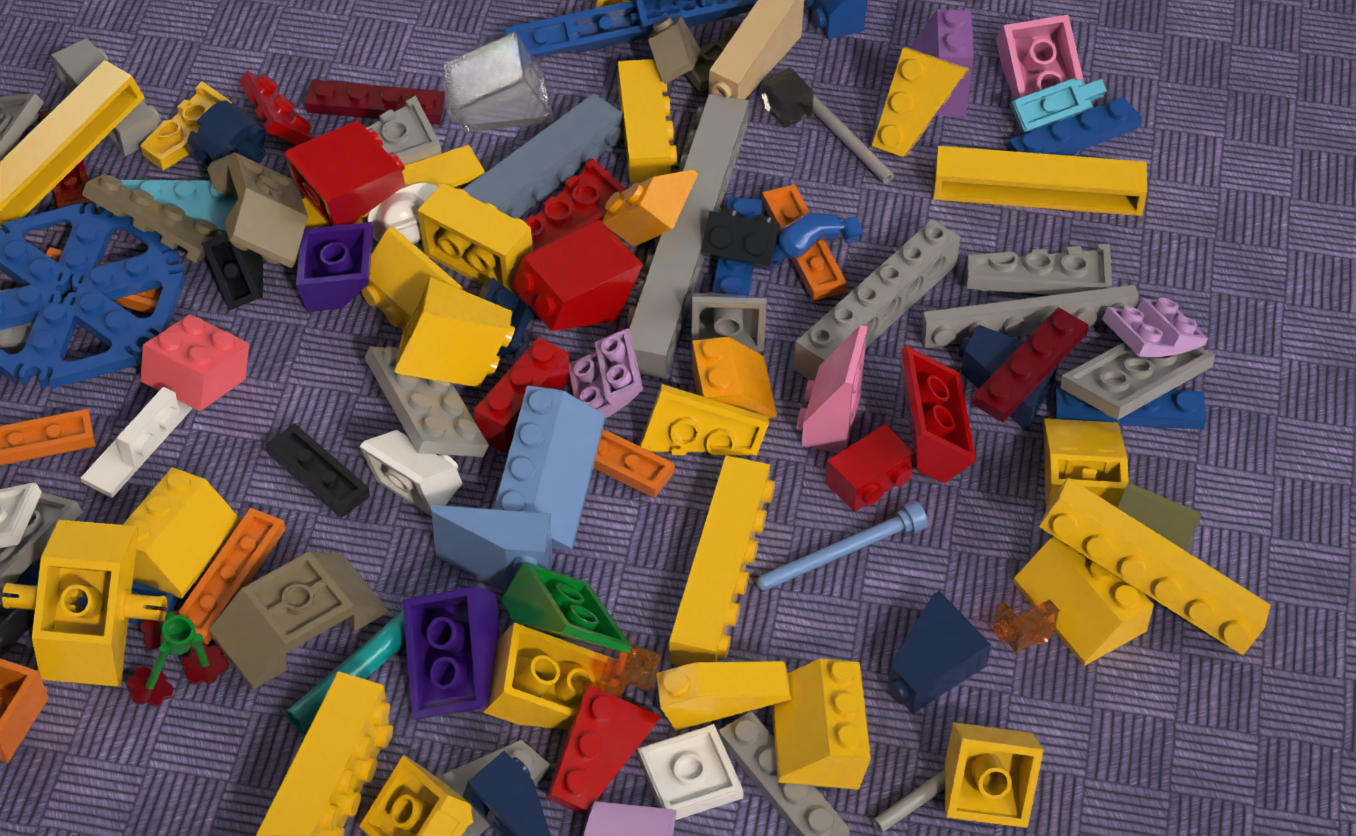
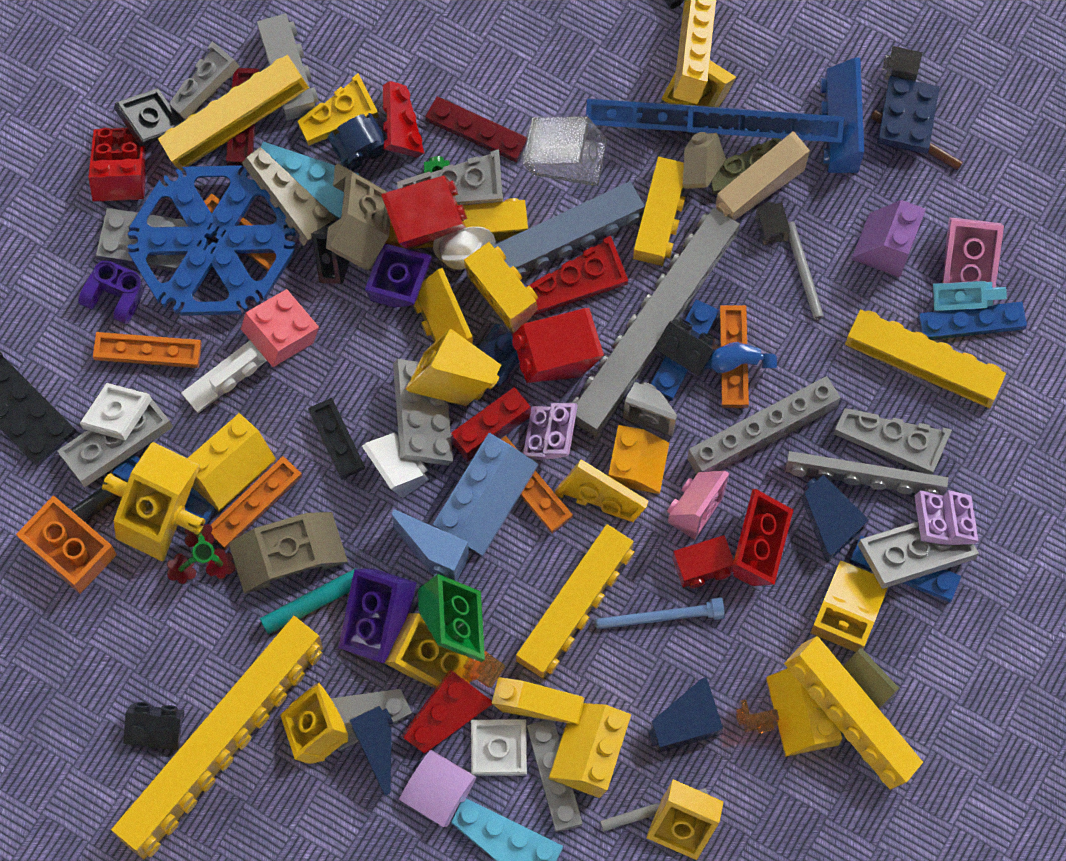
camera: 20 degrees right, 20 degrees up
(649, 206) = (632, 297): light orange slope -> none
(915, 96) = (857, 266): yellow wing -> none
(1030, 364) = (843, 521): dark red plate -> none

